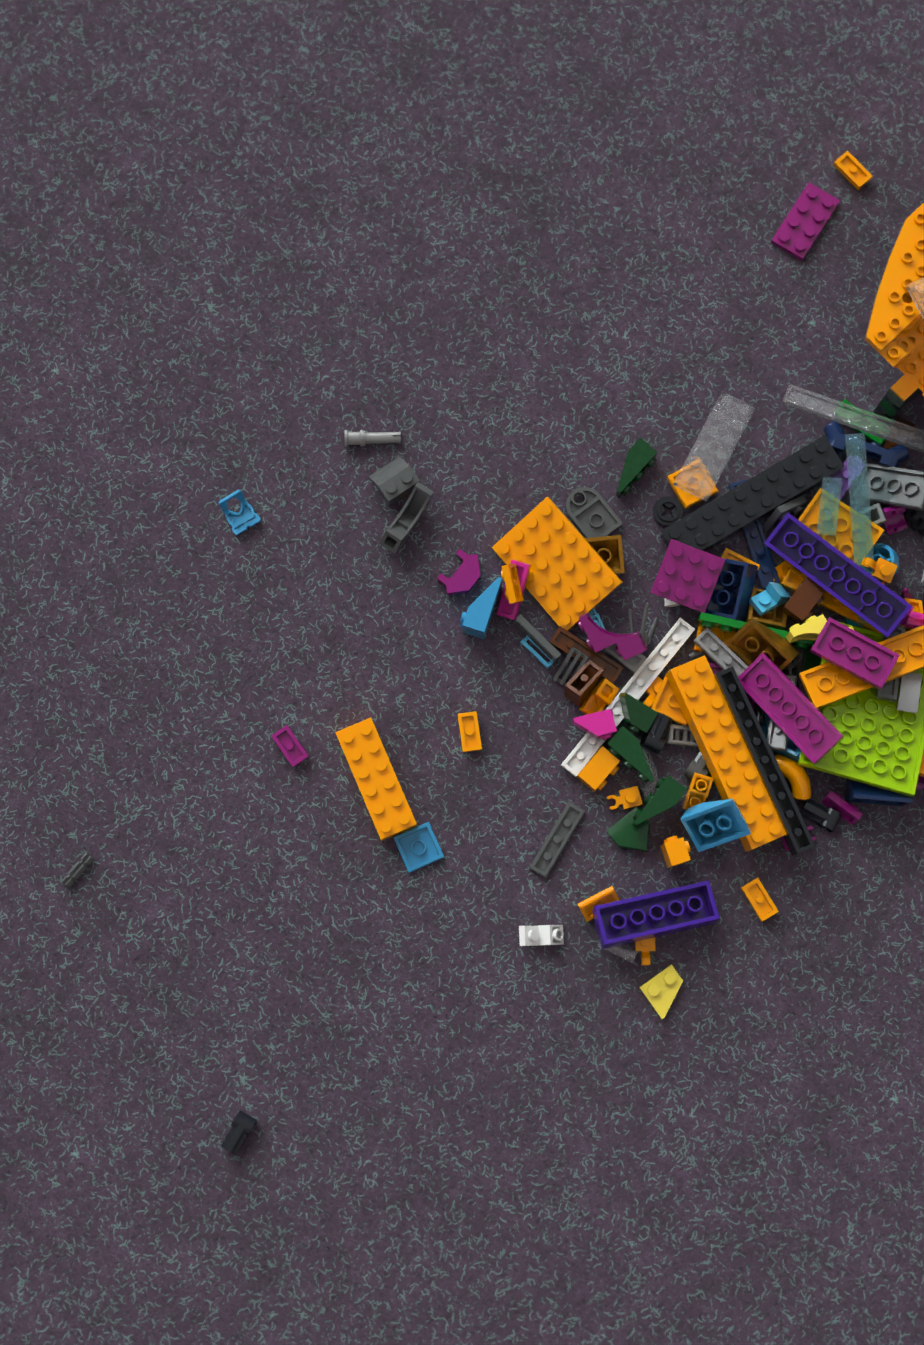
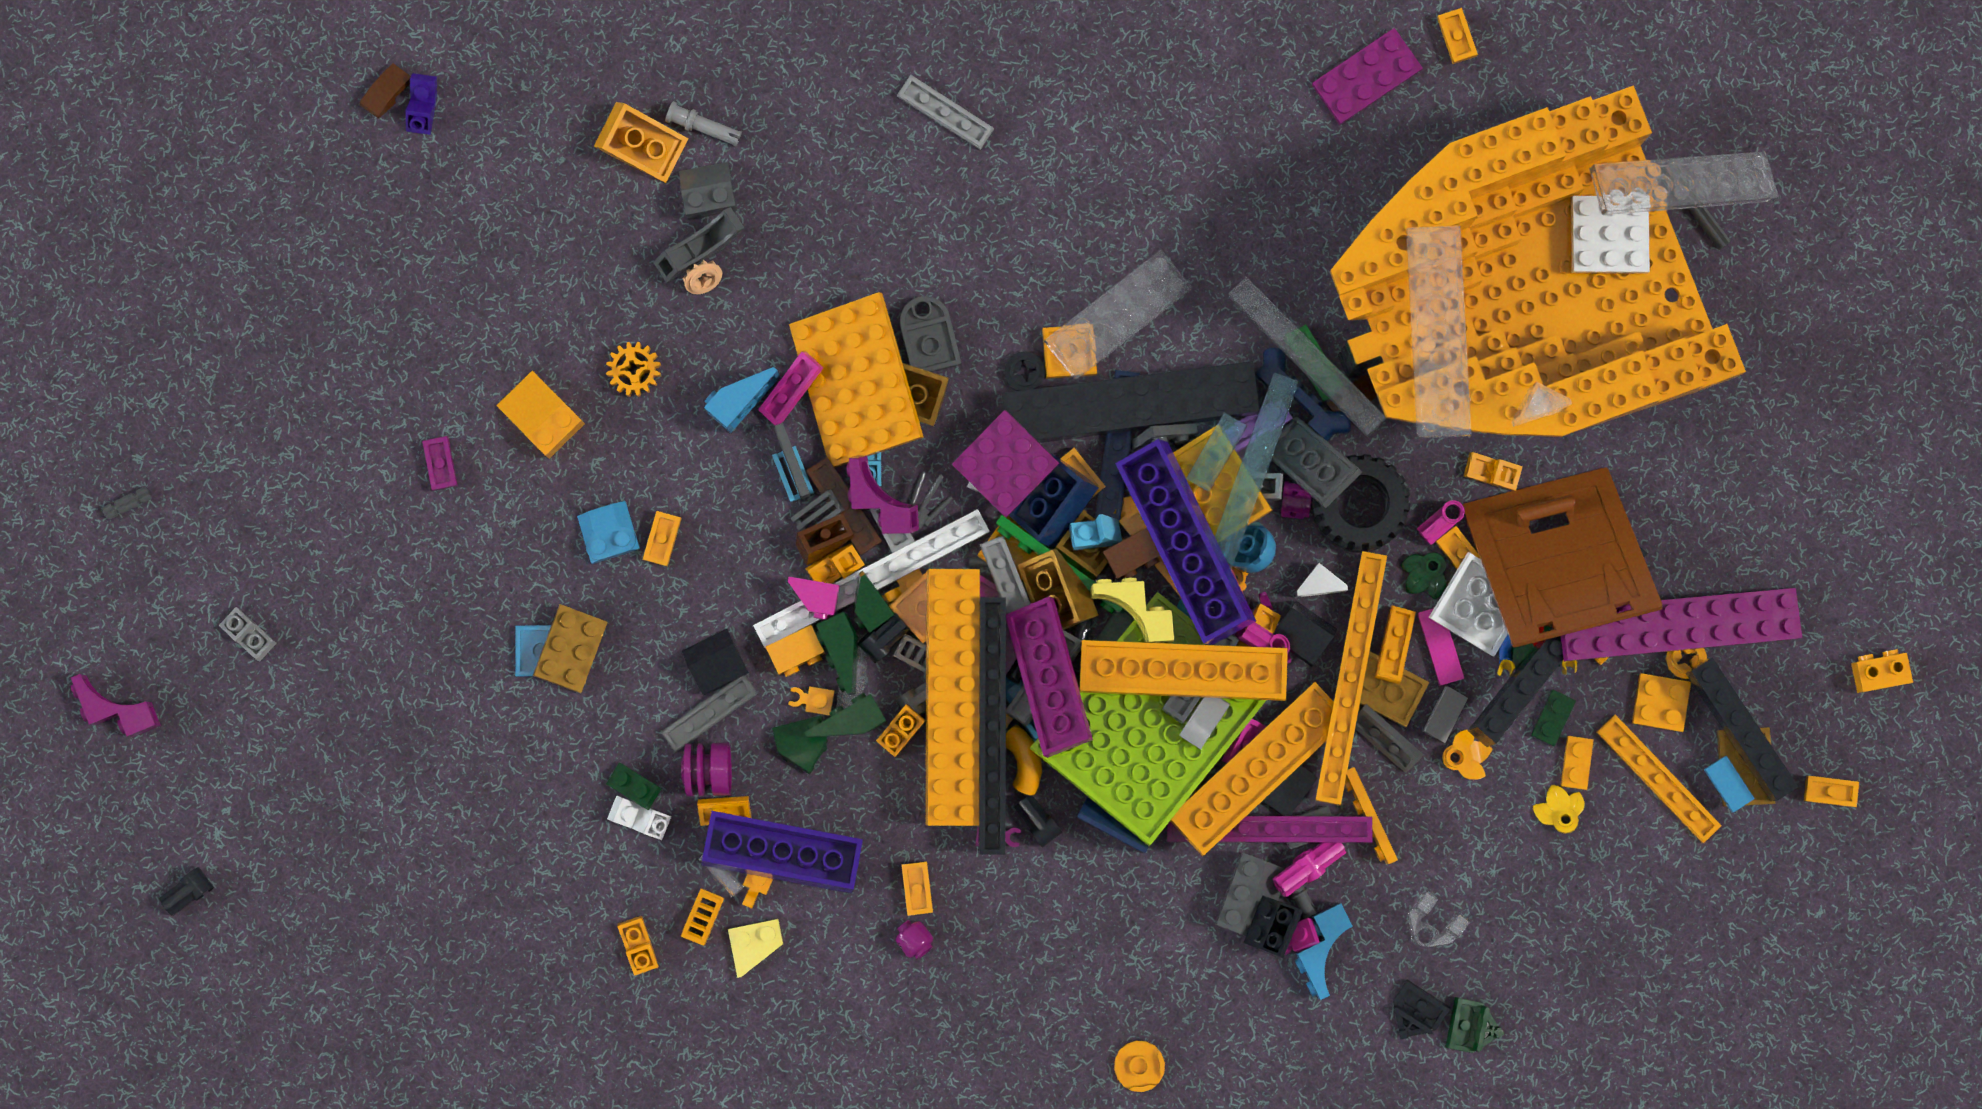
camera: 25 degrees right, 5 degrees up
(117, 1027) = (96, 709): none -> magenta arch
(140, 506) = (384, 90): none -> reddish brown slope
(169, 505) = (421, 104): none -> dark purple slope
(204, 926) = (247, 634): none -> light grey slope
(244, 518) = (505, 159): dark azure piece -> none
(333, 466) = (641, 141): none -> light orange slope
(346, 682) = (540, 414): none -> light orange slope
(376, 779) = (524, 547): light orange brick -> none
(390, 628) = (631, 358): none -> light orange gear
(422, 542) = (708, 281): none -> light nougat gear
(429, 743) = (608, 532): none -> dark azure slope
(439, 836) = (570, 648): none -> pearl gold plate
(465, 576) = (741, 346): magenta piece -> none
(513, 589) = (788, 381): light orange plate -> none
(527, 914) = (634, 786): none -> dark green plate
(533, 361) = (945, 112): none -> light grey tile
(545, 801) = (714, 662): none -> black slope
(576, 878) = (707, 769): none -> magenta wheel
(580, 1027) = (637, 945): none -> light orange slope
(623, 1003) = (702, 940): none -> light orange slope
(637, 459) = (1014, 292): dark green slope -> none
(675, 851) = (840, 788): light orange brick -> none
(714, 823) = (897, 775): dark azure slope -> none
(774, 936) = (914, 939): none -> magenta head
(849, 812) = (1062, 813): magenta plate -> none
(854, 653) = (1155, 645): magenta plate -> none
(881, 569) = (1242, 558): light orange plate -> none

